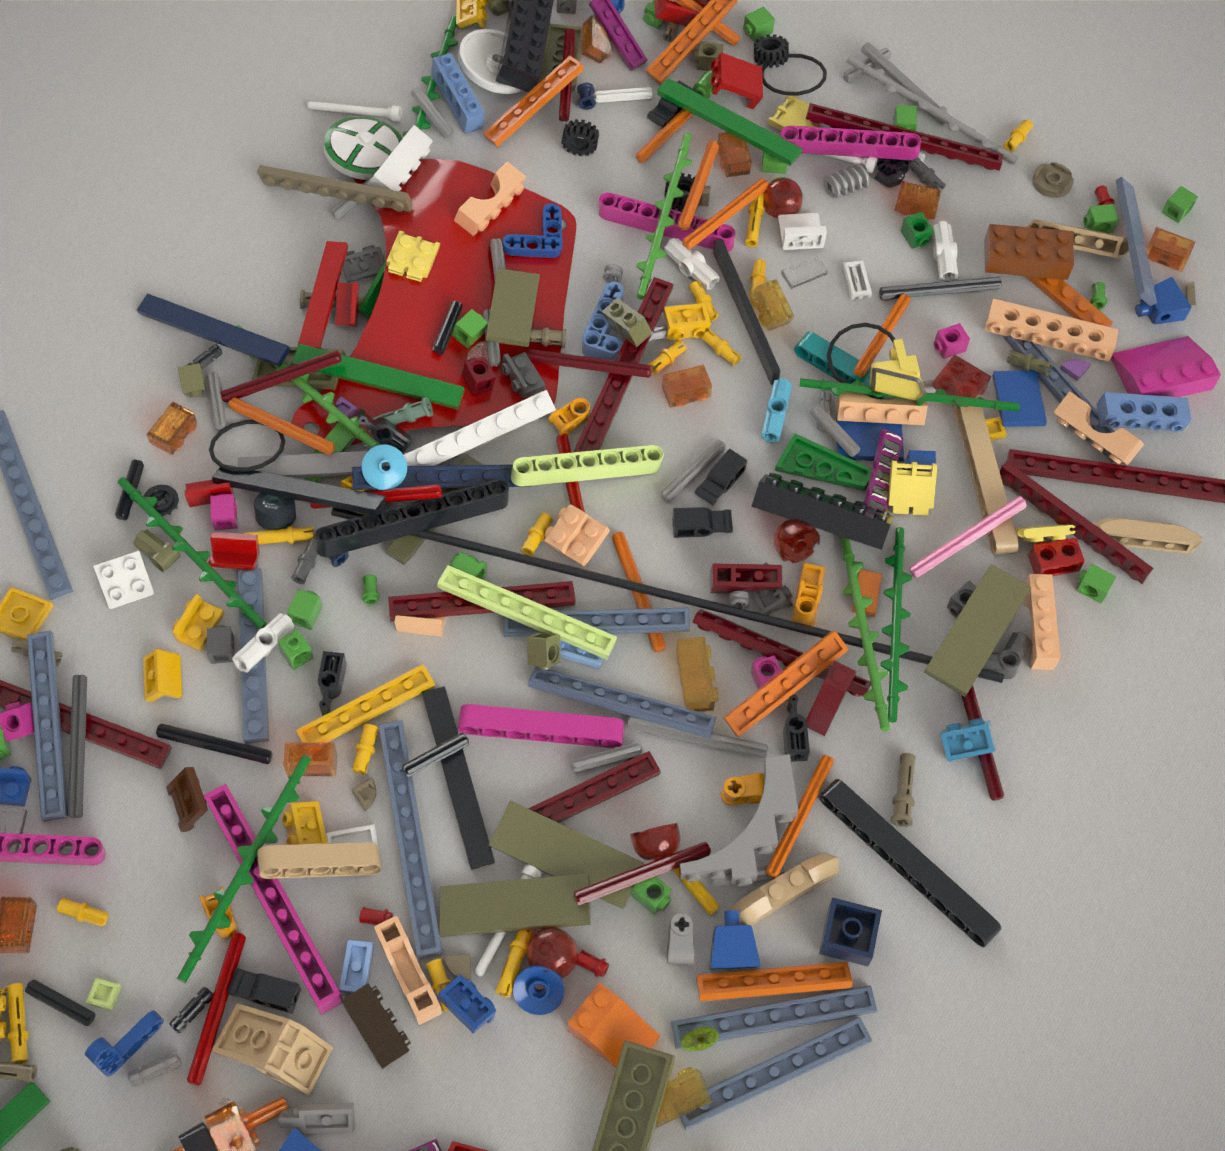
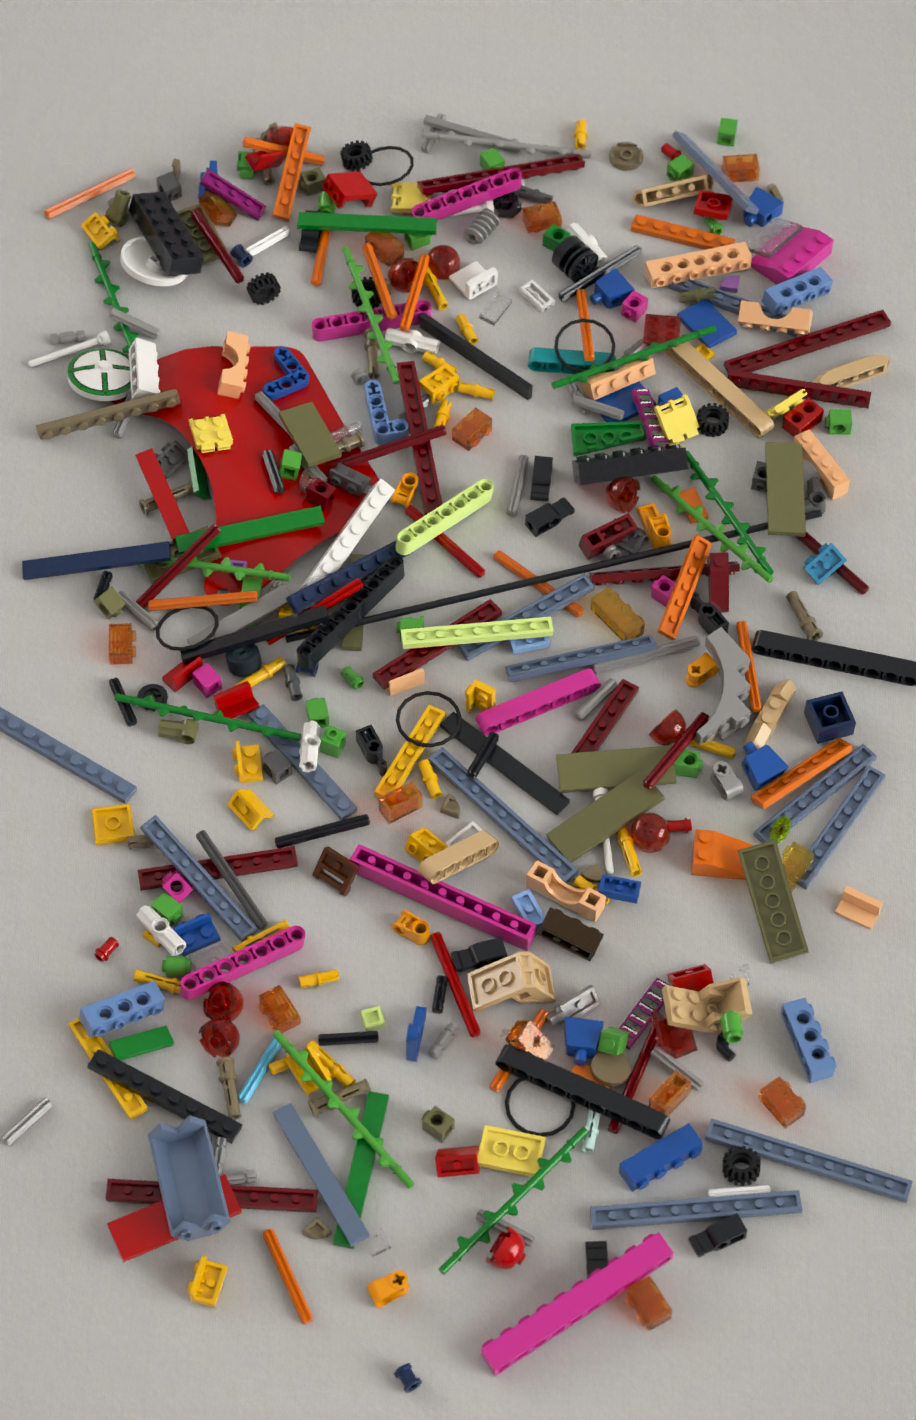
camera: 30 degrees left, 5 degrees down
(90, 829) = (260, 936): none -> yellow pin
(124, 579) = (170, 760): white bracket -> none
(242, 876) = (417, 891): green plant -> none
(347, 304) = (184, 492): red panel -> none
(363, 96) = (67, 337): none -> light grey axle
(374, 473) = (303, 589): medium azure dish -> none
(374, 916) = (517, 875): red pin -> none
(392, 436) = (286, 565): black piece -> none
(408, 413) = (293, 543): sand green pin -> none
(410, 715) = (434, 694): none -> black piece
(457, 93) = (144, 299): medium blue brick -> none
(473, 681) = (479, 695): none -> yellow bracket
(533, 101) = (208, 277): orange plate -> none
(536, 534) = (440, 581): yellow pin -> none
(538, 1000) = (666, 858): blue dish -> none
(543, 650) = (507, 651): olive brick -> none
(555, 323) = (347, 431): none -> clear axle
(576, 535) = (471, 567): light nougat plate -> none
(627, 322) = (403, 403): olive brick -> none
(633, 272) = (372, 348): none -> dark tan pin
(729, 187) = (402, 274): none -> clear red cylinder
(758, 23) = (331, 139): bright green brick -> none
(771, 305) = (492, 342): clear yellow brick -> none
(774, 419) = (547, 414): medium azure piece -> none
(899, 375) = (623, 344): light yellow piece -> none
(919, 258) = (574, 258): none -> black wheel
(938, 310) = (611, 289): none -> blue torso
(957, 497) = (715, 412): none -> black tyre
(967, 537) = (737, 433): bright pink axle -> none
(1029, 251) = (647, 216): dark orange brick -> none
(1110, 274) = (713, 205): none -> red plate
(1155, 340) = (773, 237): none -> clear tile

